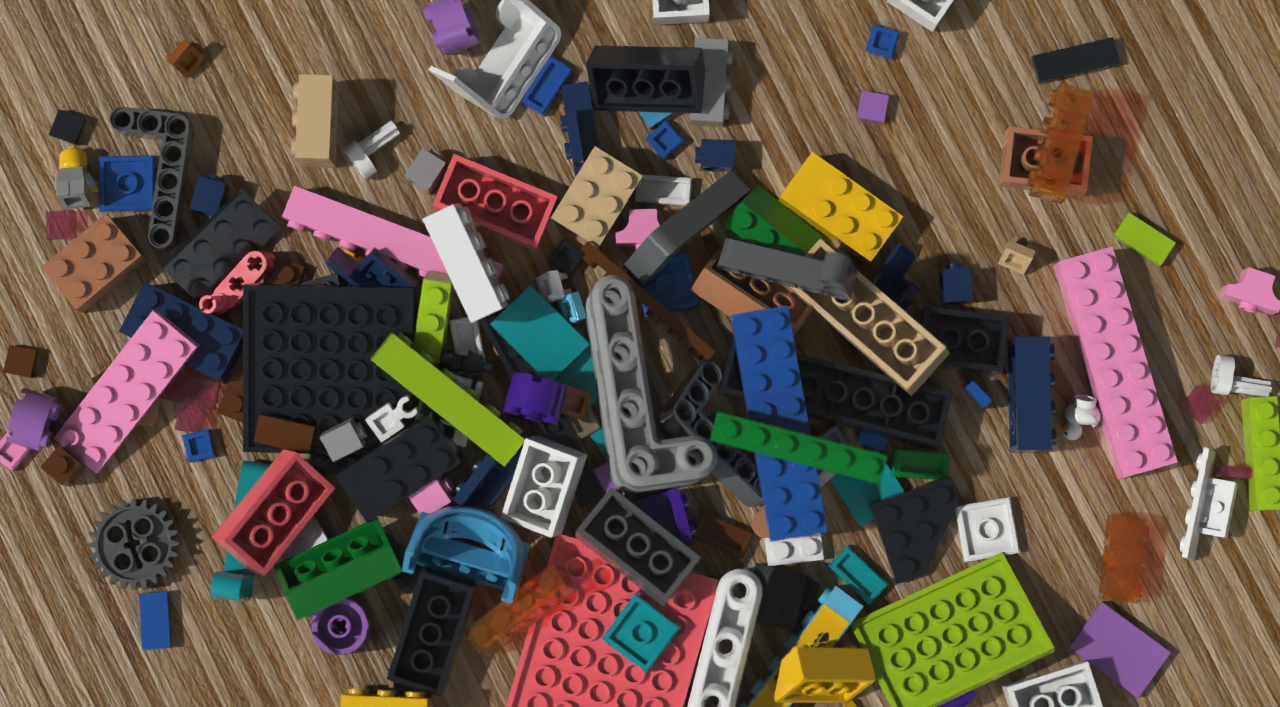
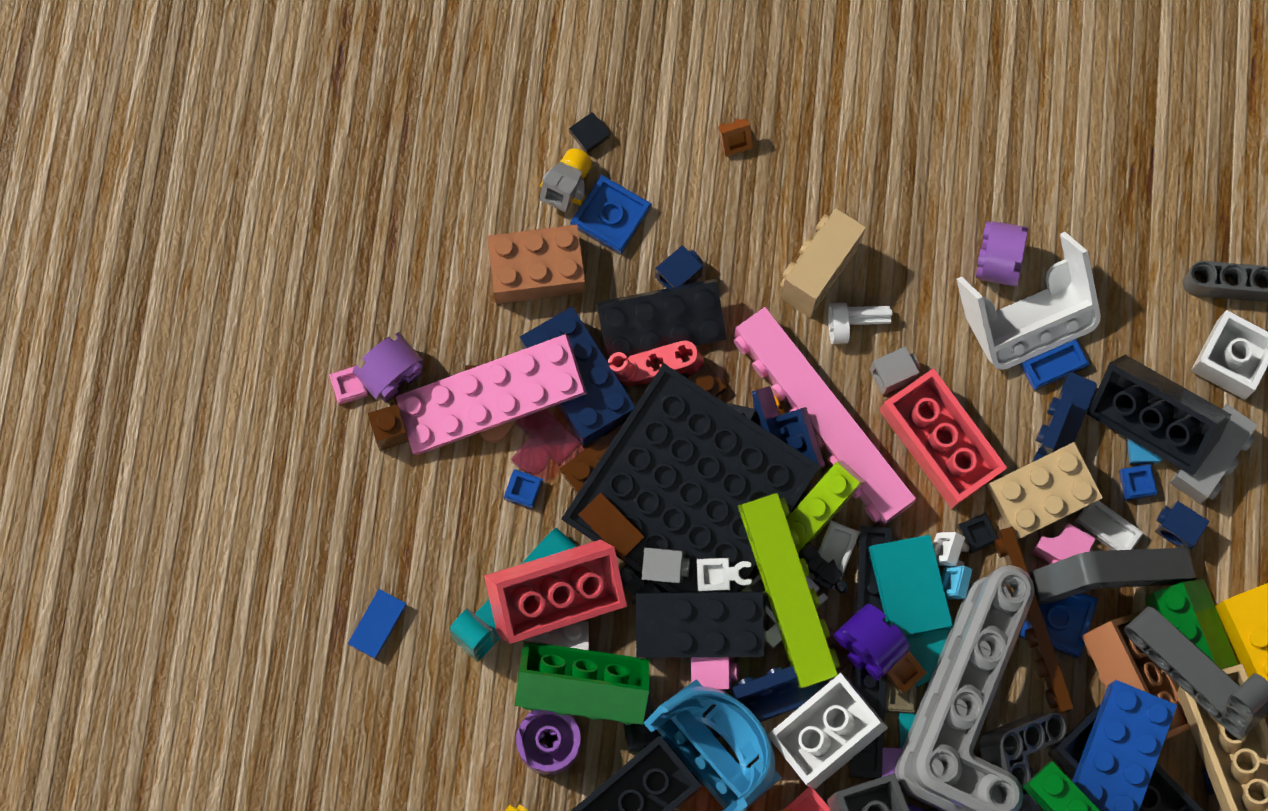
camera: 30 degrees right, 10 degrees down
(20, 361) = (411, 310): reddish brown tile -> none
(61, 225) = (527, 213): clear pink tile -> none
(159, 536) = (378, 533): dark grey gear -> none
(166, 169) = (656, 222): dark grey beam -> none
(465, 261) = (886, 471): white brick -> none

